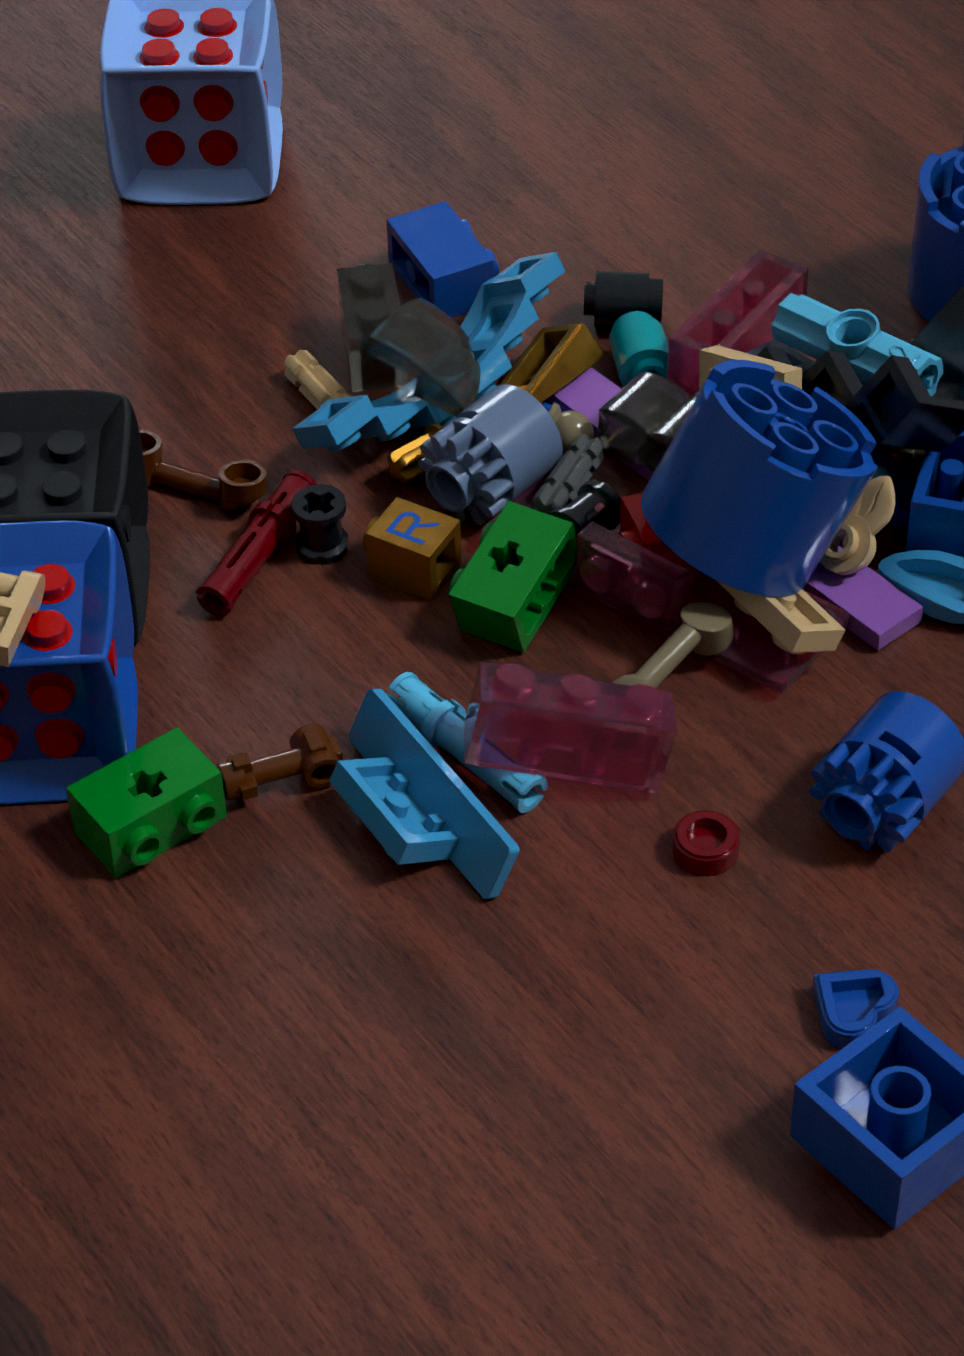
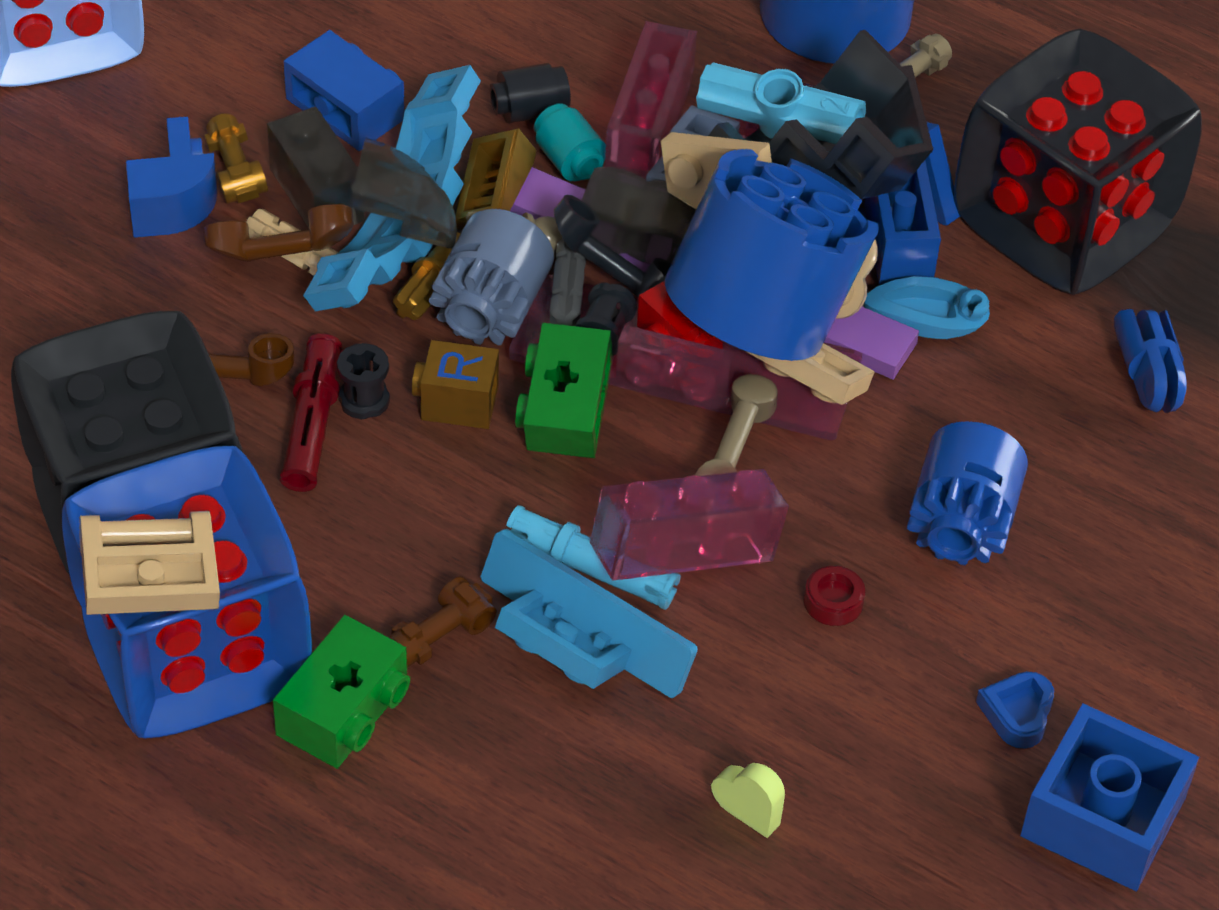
camera: 25 degrees left, 5 degrees up
(229, 316) = (175, 190): none -> blue brick
(303, 320) = (242, 179): none -> pearl gold bar
(350, 374) = (326, 227): none -> reddish brown bar
(512, 1014) = (751, 795): none -> yellowish green tile
(588, 418) = (576, 224): none -> black bar

